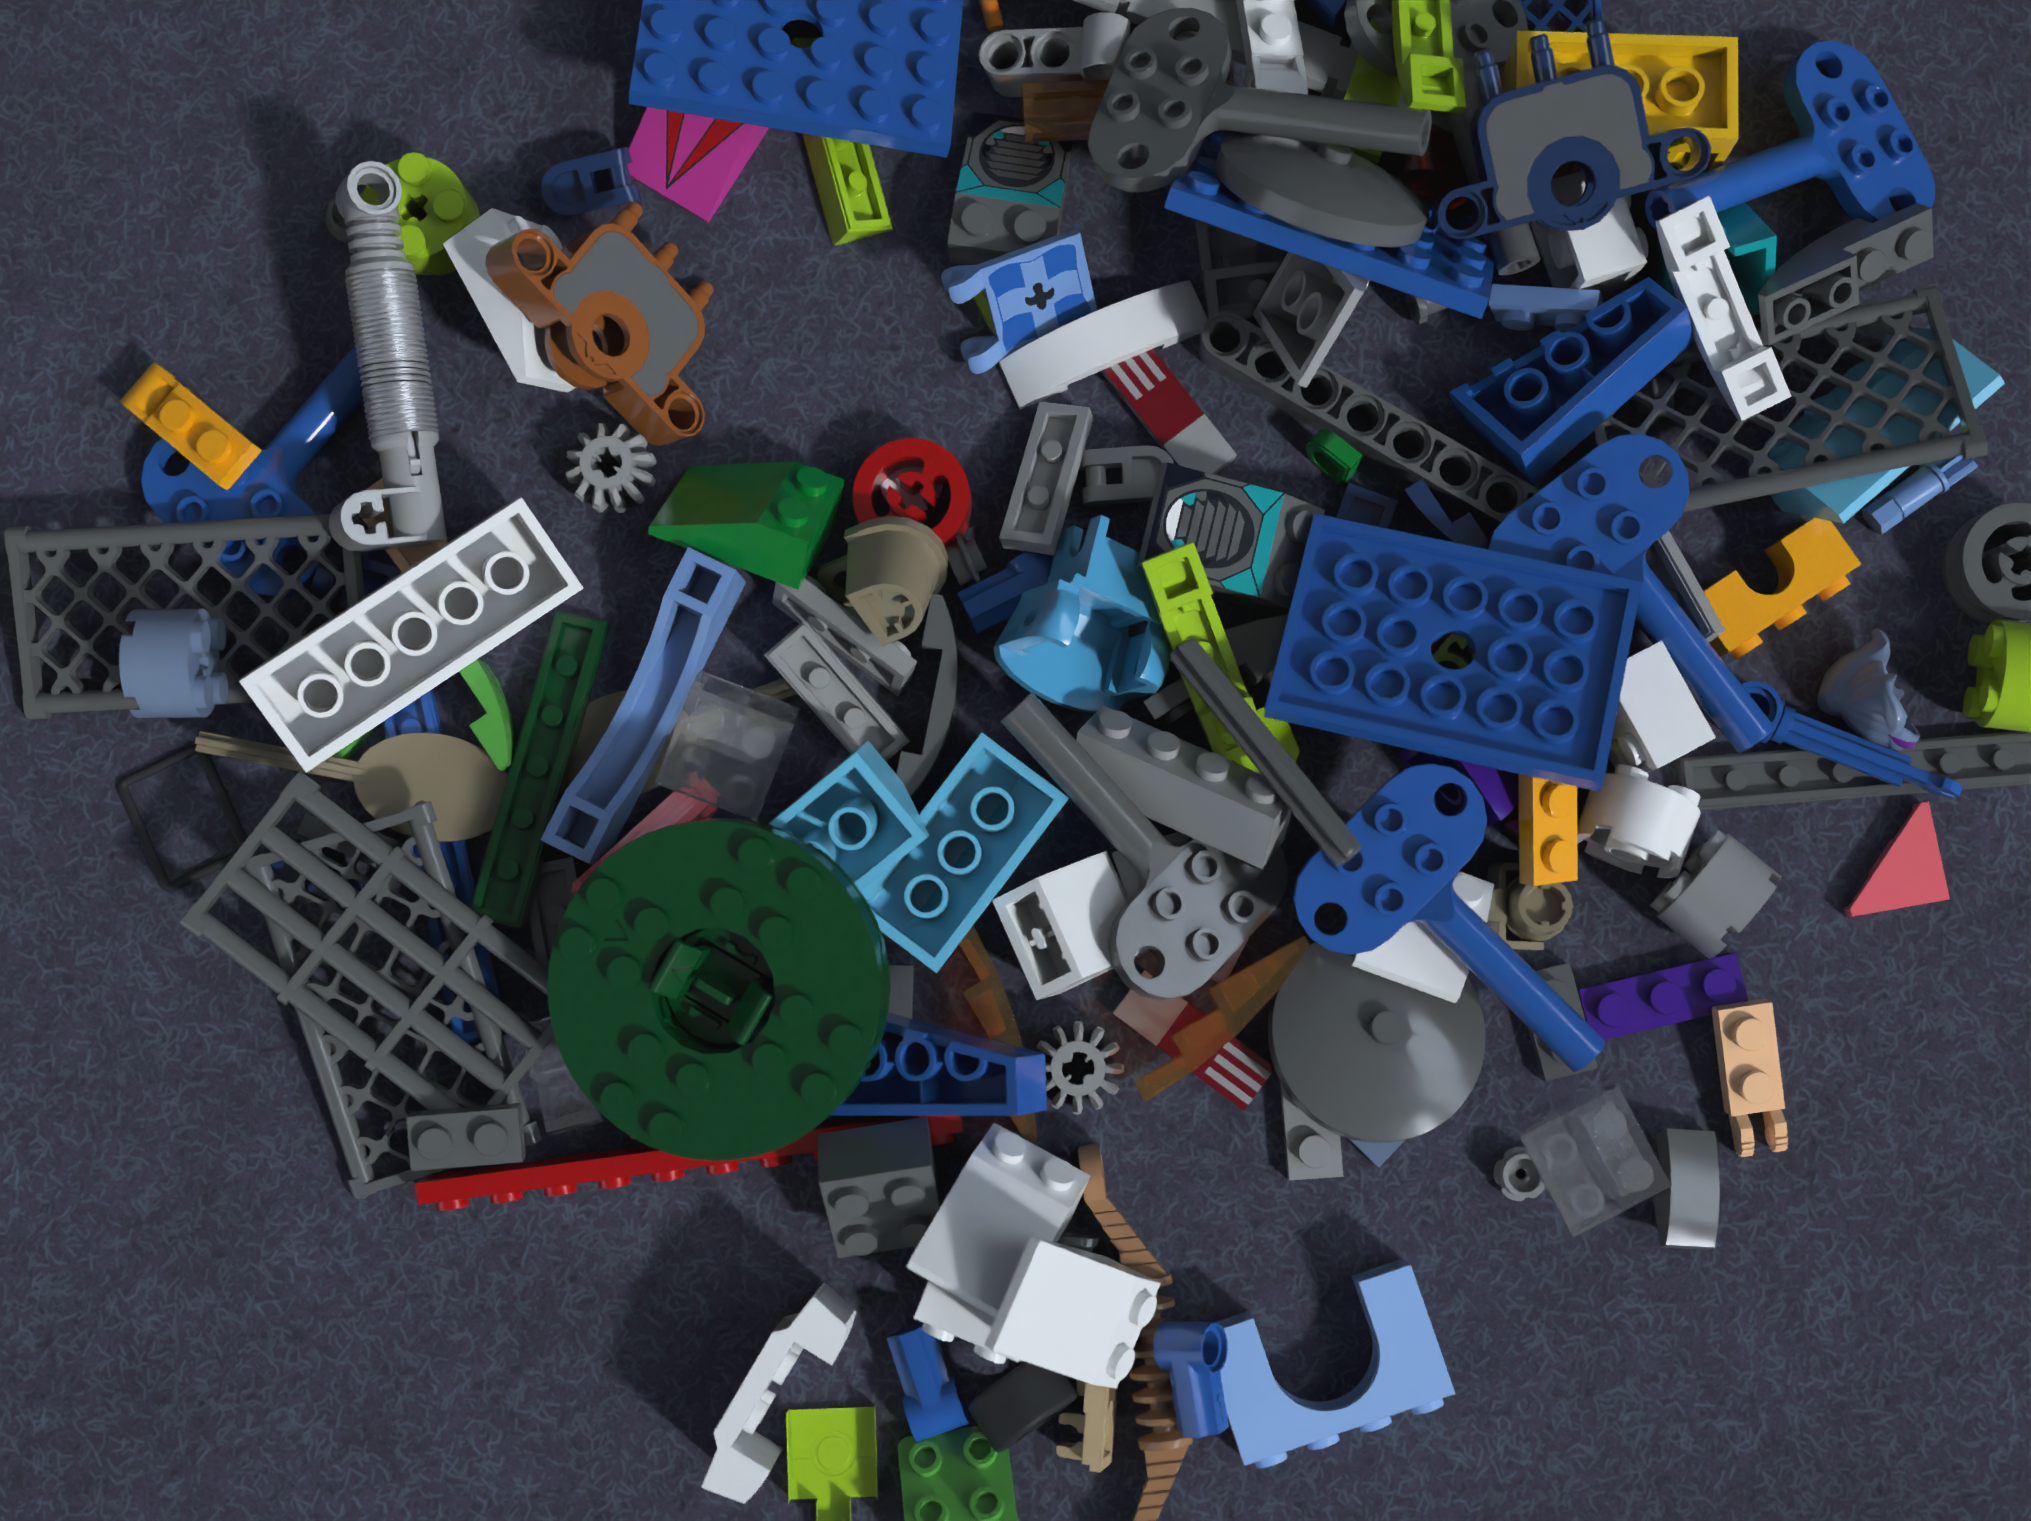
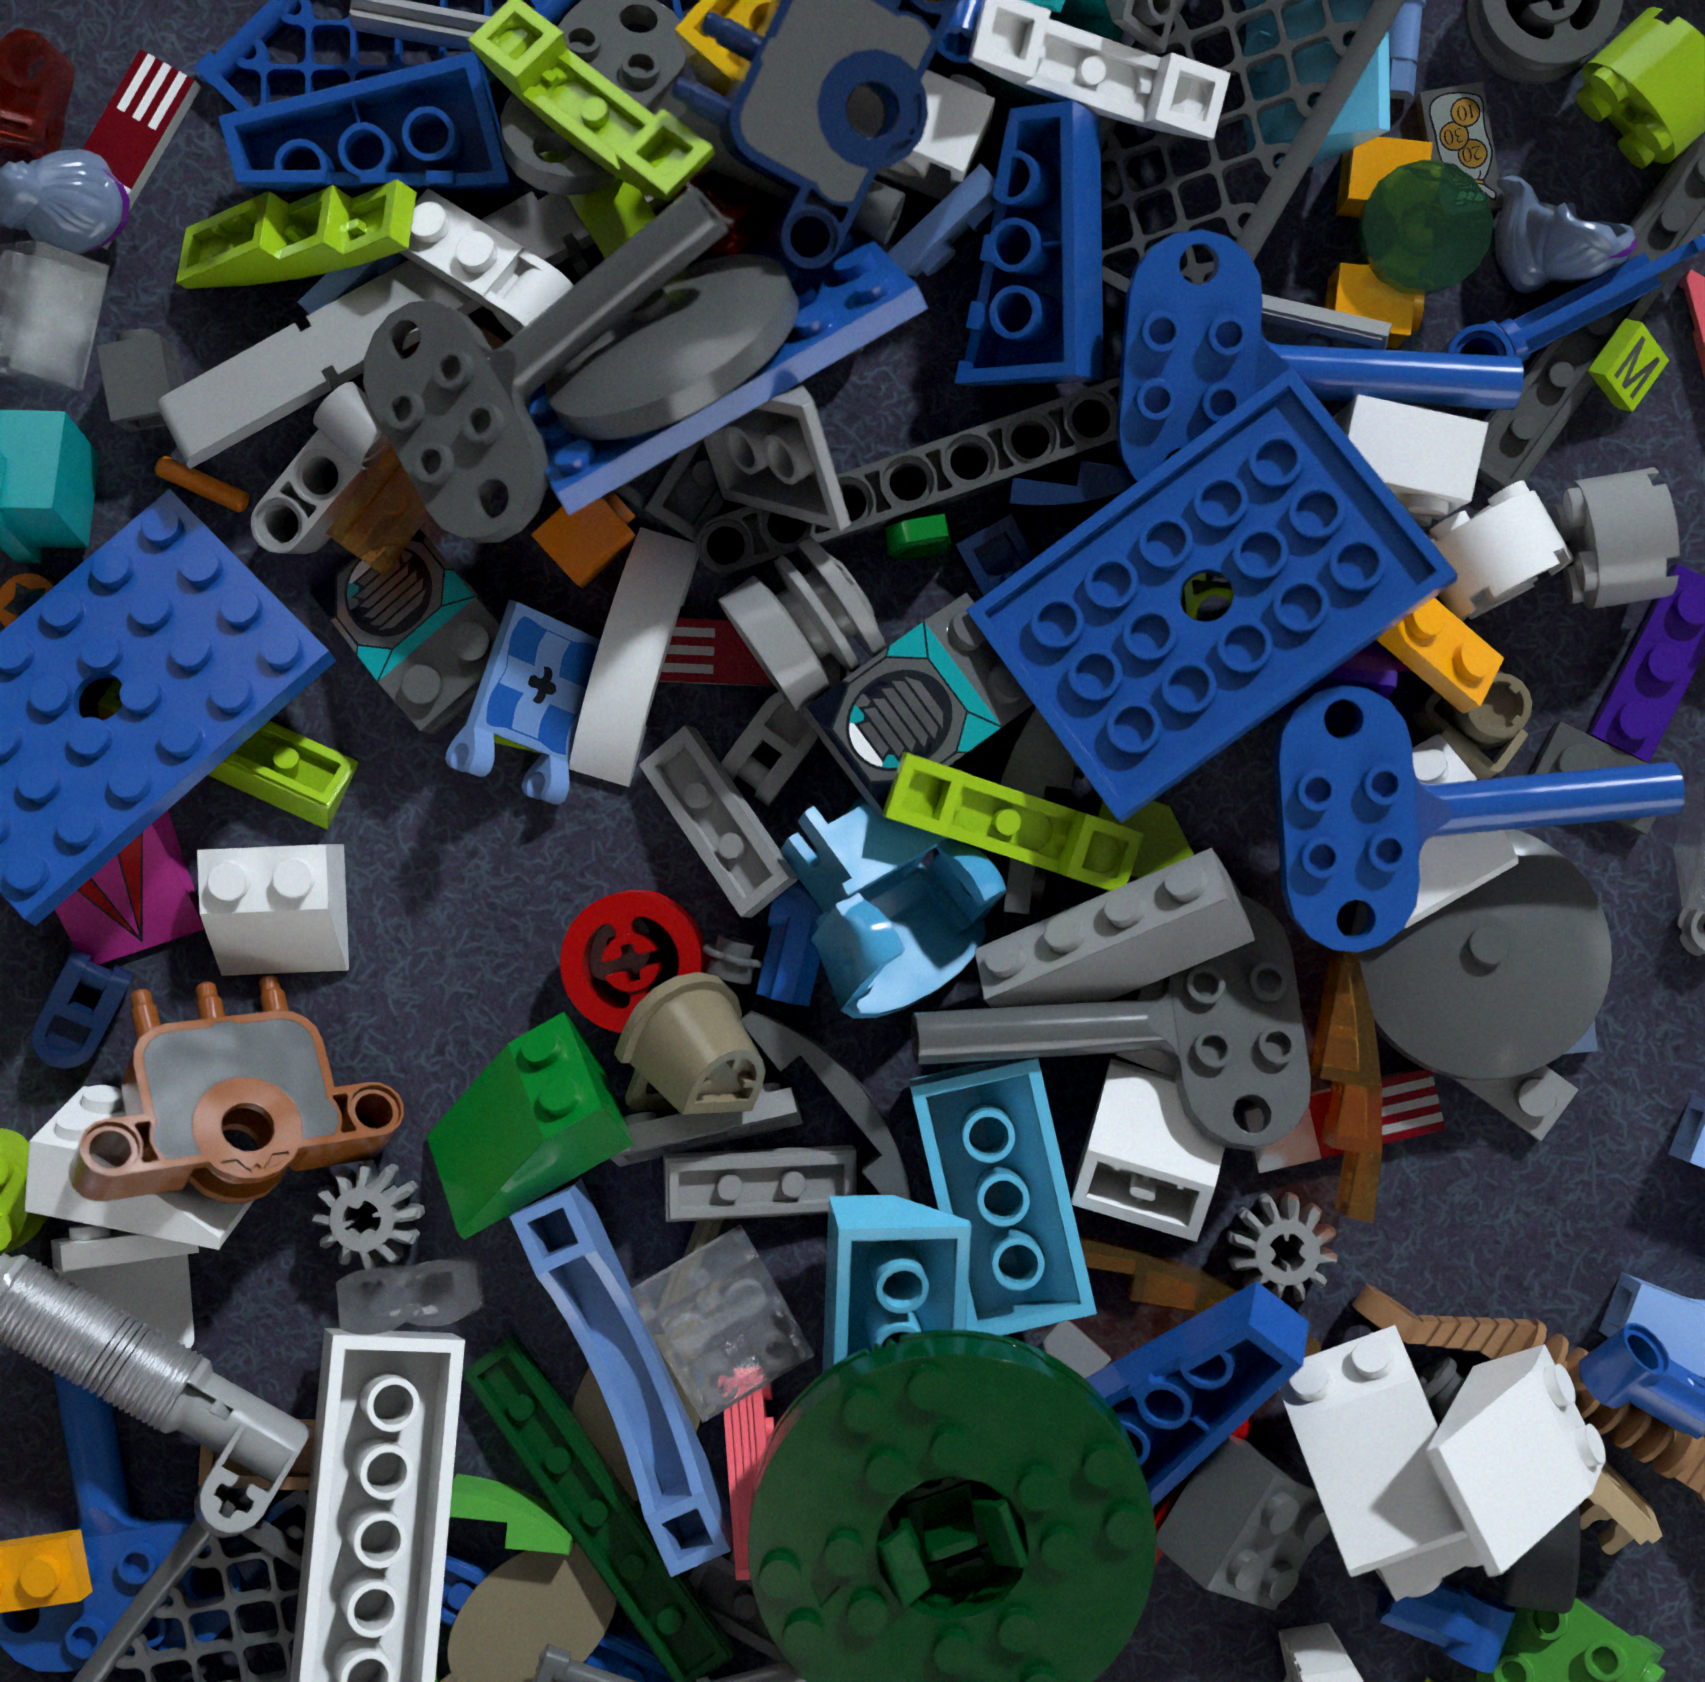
camera: 60 degrees left, 5 degrees up
(457, 347) = (132, 1272): none -> white bracket
(593, 539) = (400, 1295): none -> clear brick
(758, 250) = (275, 908): none -> white slope
(1157, 248) = (588, 538): none -> orange brick
(1219, 419) = (804, 622): none -> light grey wheel
(1265, 752) = (1156, 851): dark grey axle -> none
(1804, 602) = (1425, 227): none -> clear green tile
(1833, 812) = (1628, 365): none -> lime tile
(1874, 592) = (1461, 134): none -> tile

